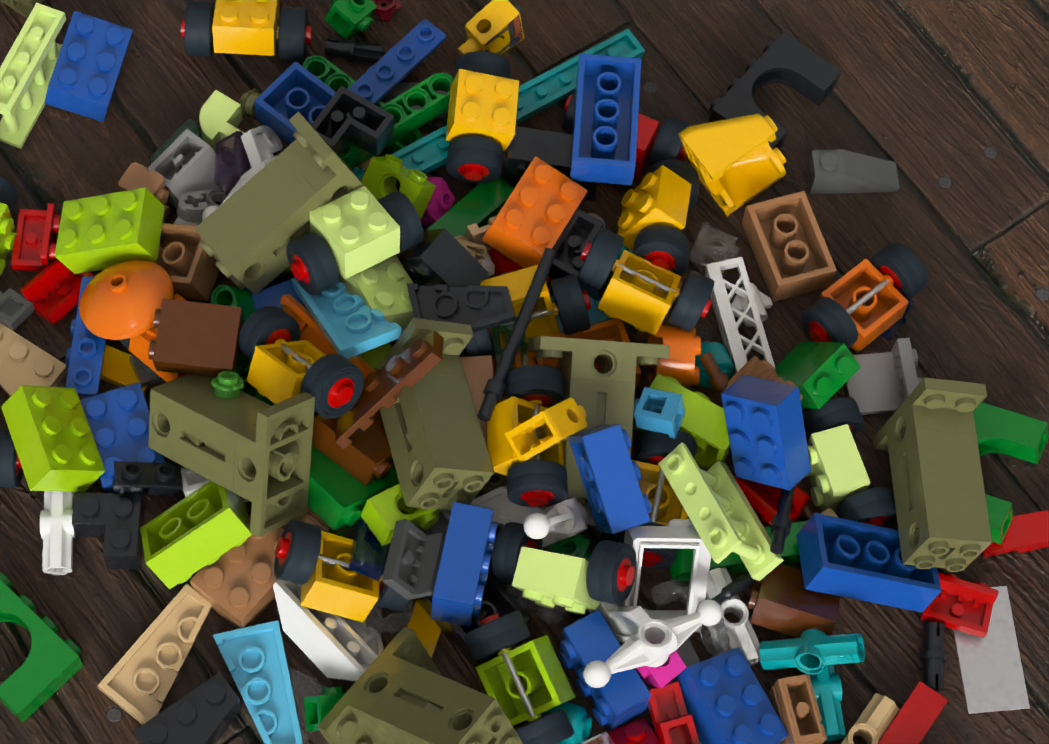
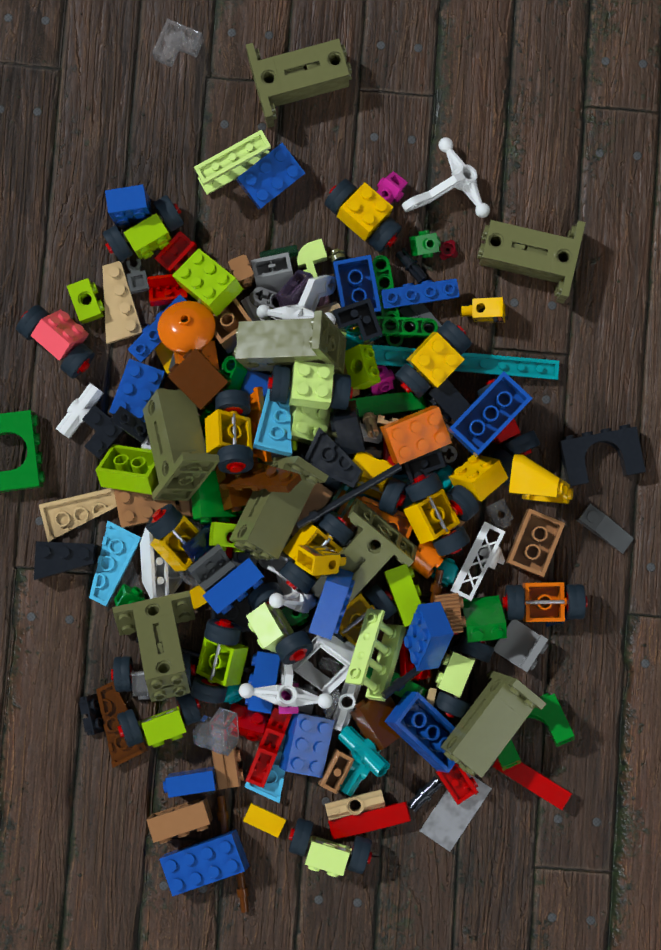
camera: 50 degrees right, 20 degrees up
(52, 439) = (102, 371): lime brick -> none
(227, 385) = (193, 415): bright green plate -> none
(659, 411) = (386, 578): dark azure brick -> none
(734, 588) = (351, 691): black piece -> none

